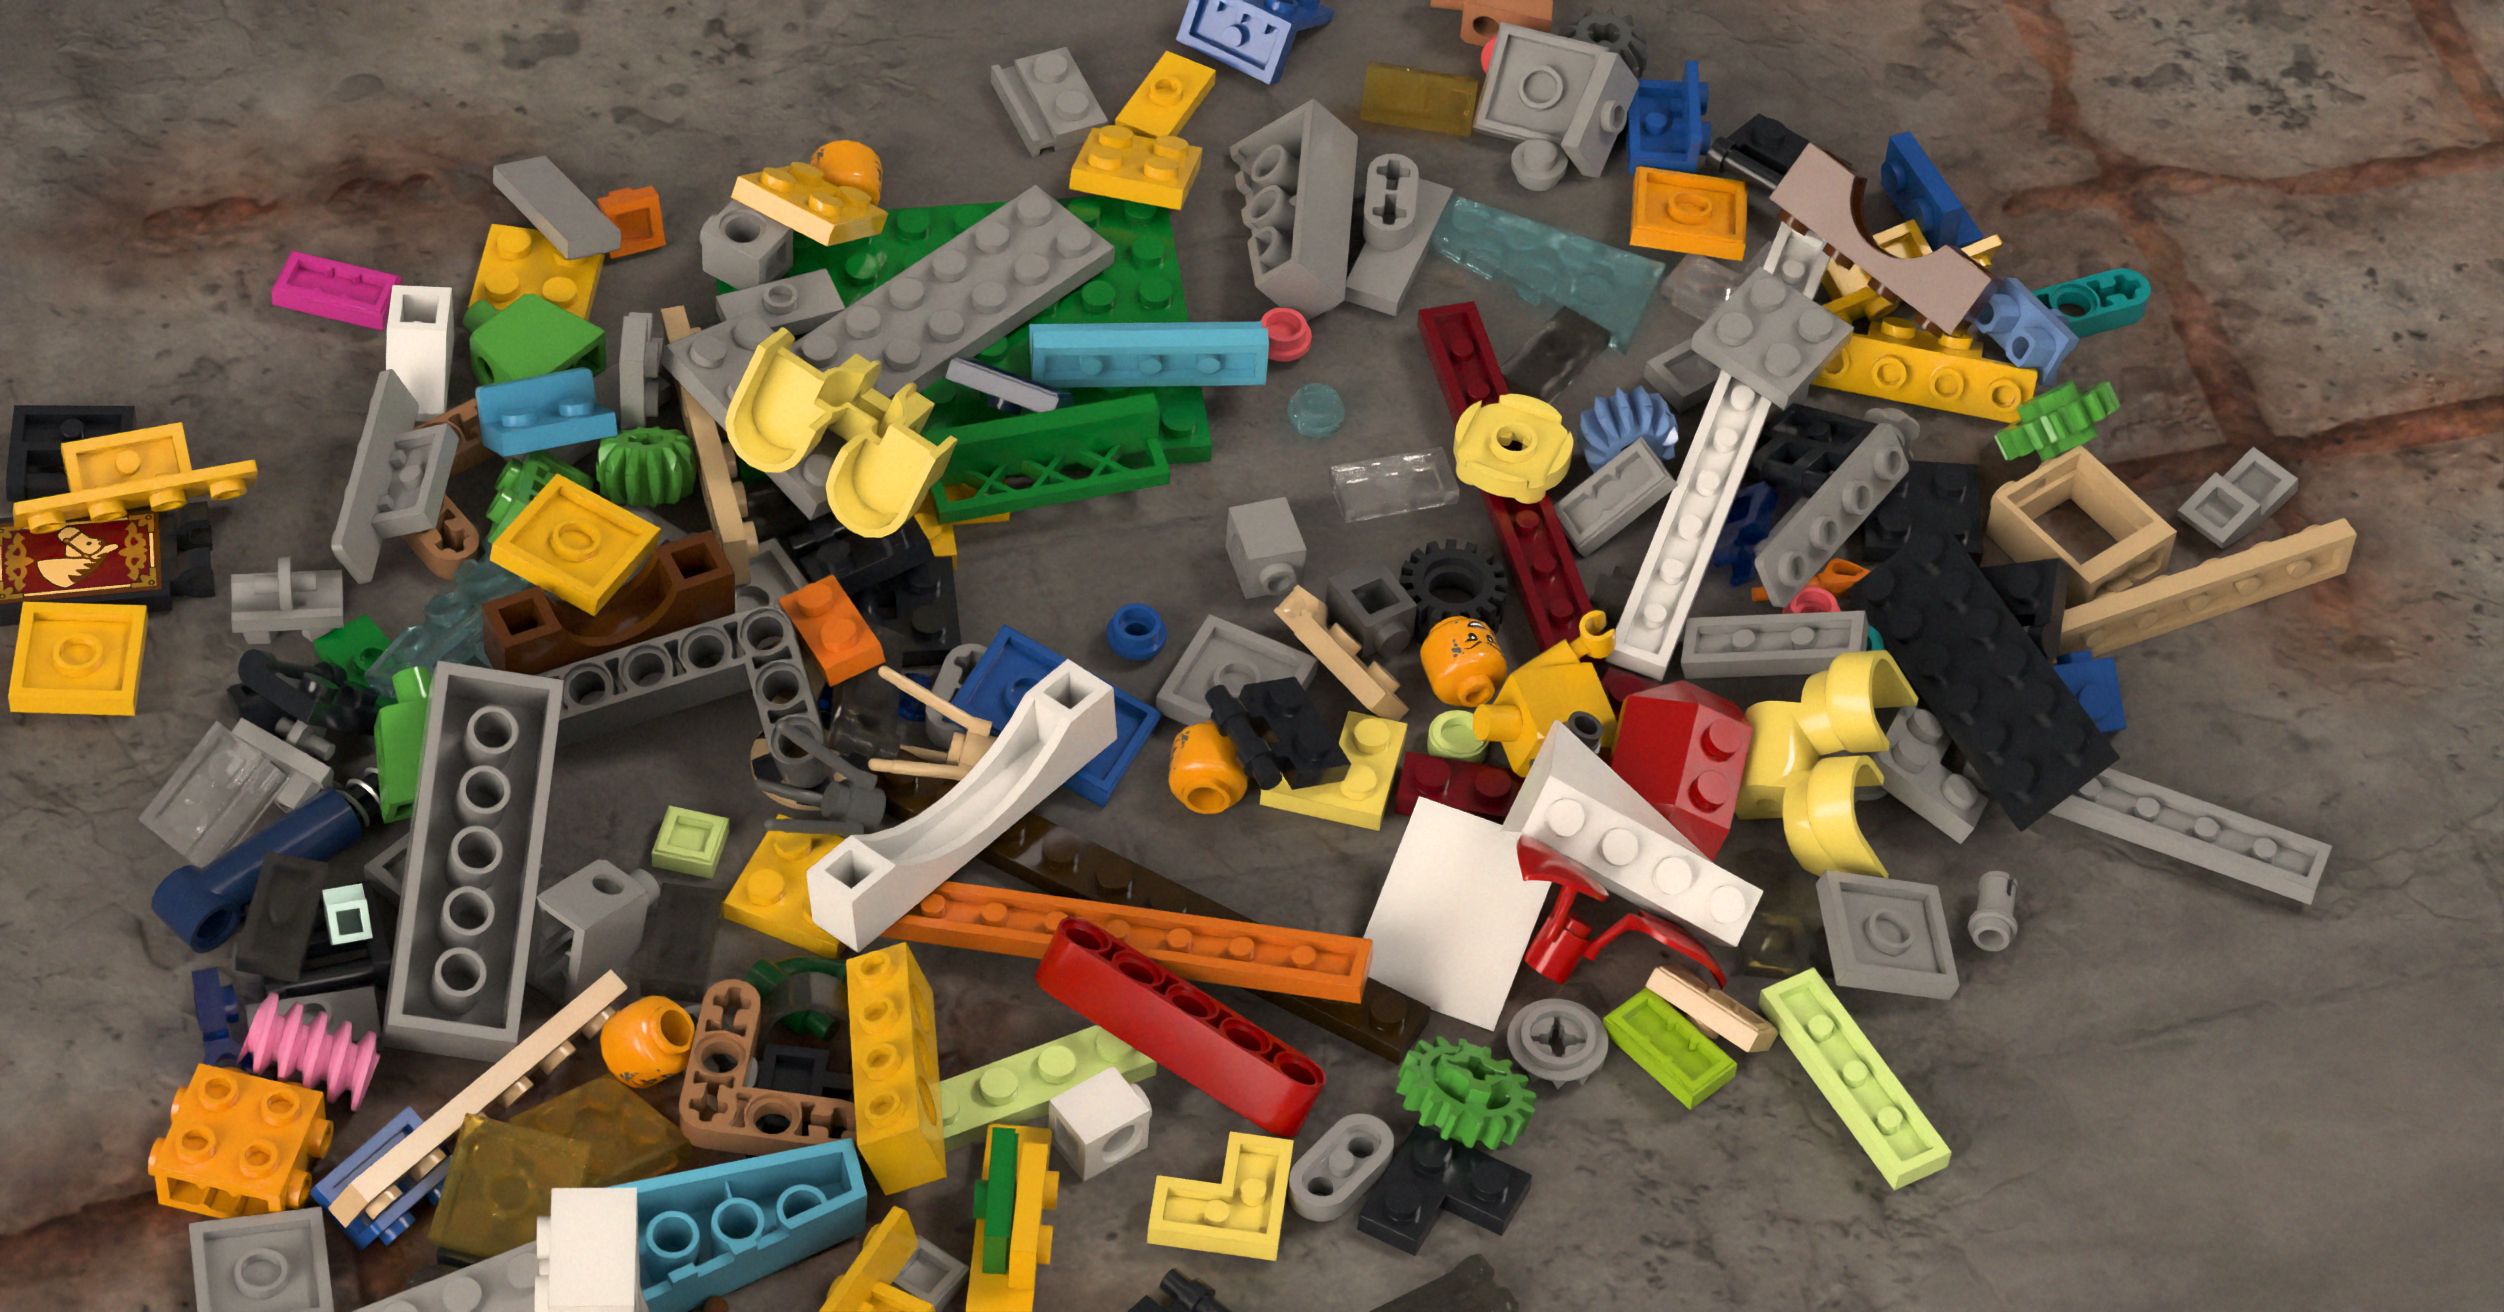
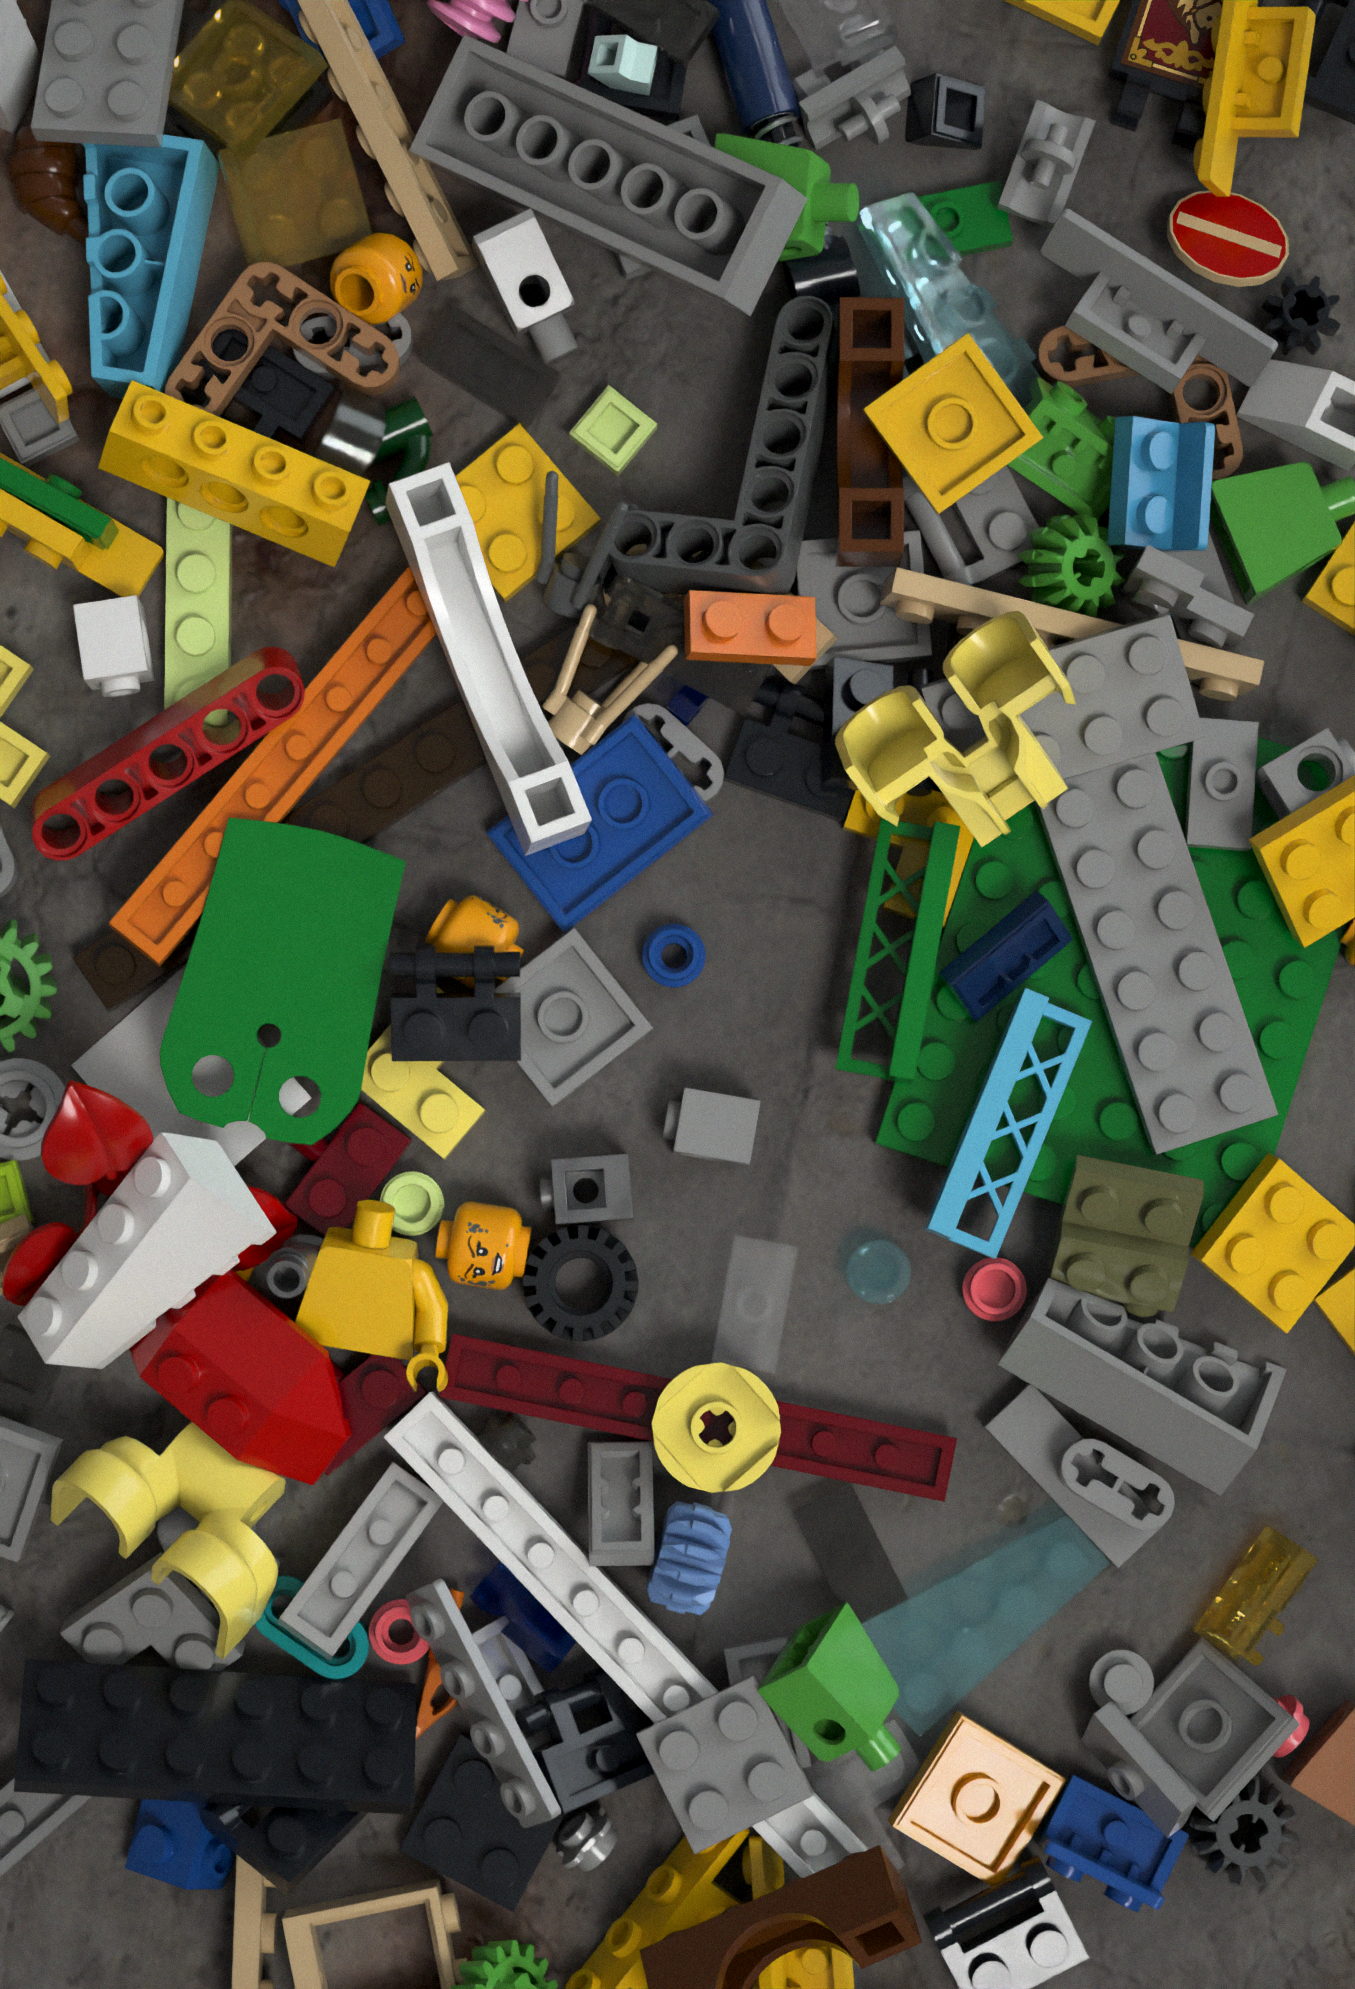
camera: 110 degrees right, 35 degrees up
(293, 462) = (1227, 238): none -> red piece
(312, 694) = (883, 134): black plate -> none
(334, 396) = (1305, 299): none -> black gear
(1192, 252) = (1126, 1234): none -> olive plate
(1313, 857) = (289, 942): none -> green piece
(1338, 652) = (545, 1130): tan hinge -> none
(1682, 291) = (834, 1690): none -> bright green torso

